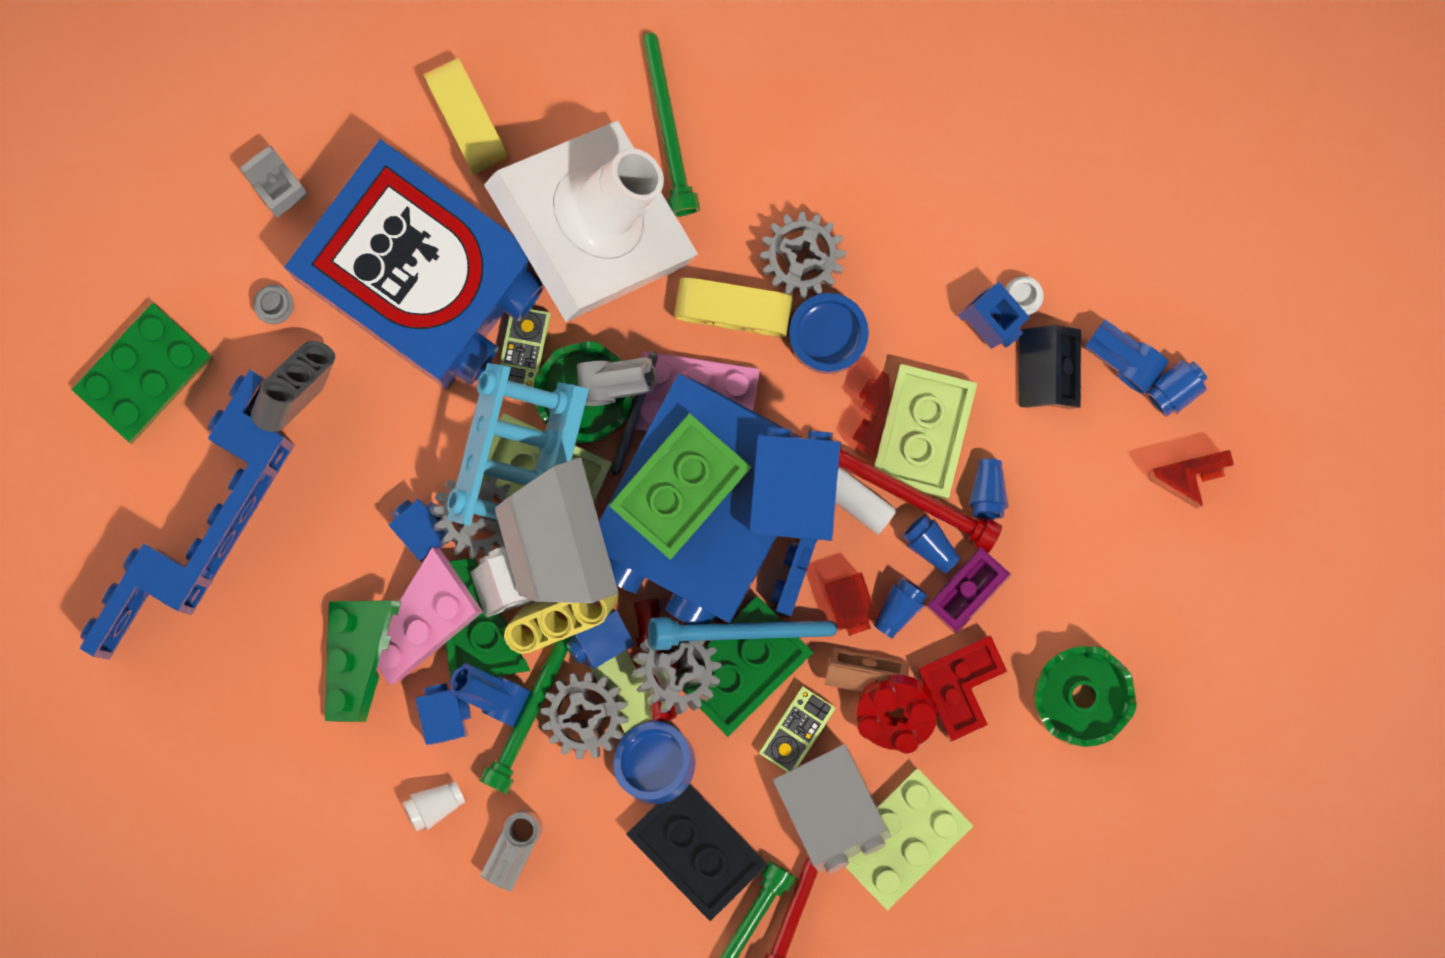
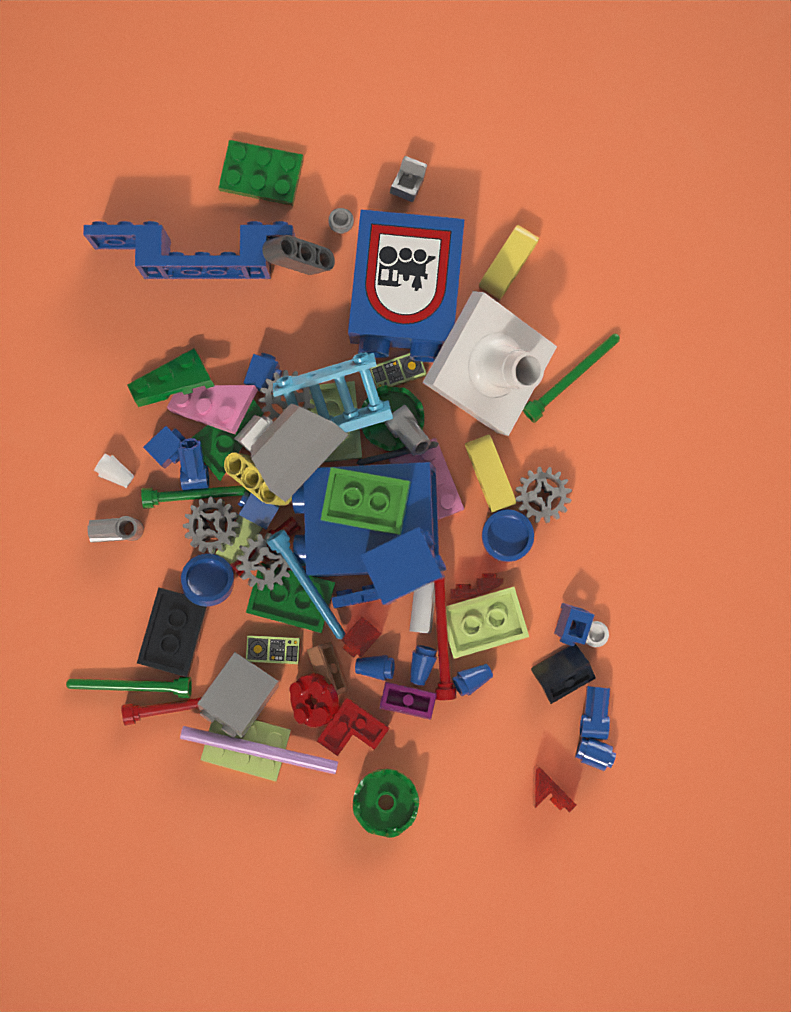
camera: 65 degrees right, 0 degrees up
(920, 822) = (259, 750): none -> lavender piece

